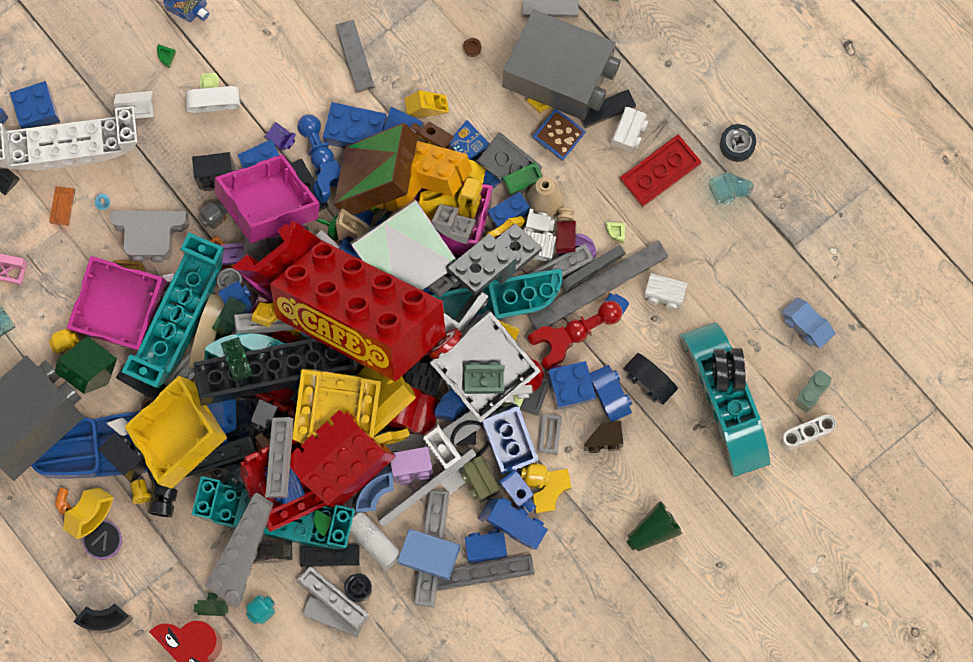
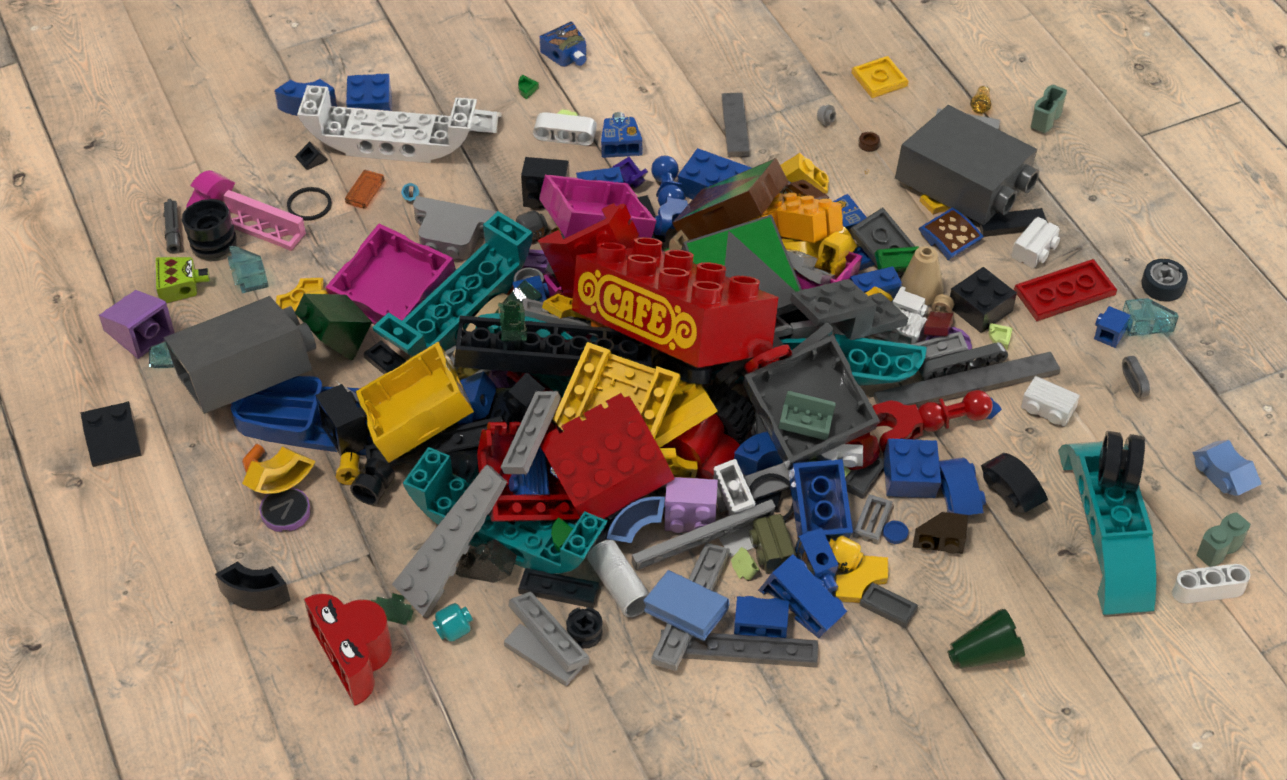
camera: 10 degrees right, 25 degrees down
(11, 218) = (310, 189): none -> black piece
(39, 341) = (293, 297): none -> yellow tile
(262, 96) = (620, 137): none -> blue torso
(430, 28) = (826, 115): none -> light grey plate
(463, 502) = (744, 564): none -> yellowish green piece
(569, 441) = (895, 532): none -> blue piece
(576, 508) = (889, 605): none -> dark grey tile
(596, 202) = (982, 299): none -> black brick
(702, 203) = (1111, 326): none -> blue brick
(728, 249) = (1135, 376): none -> flat silver tile

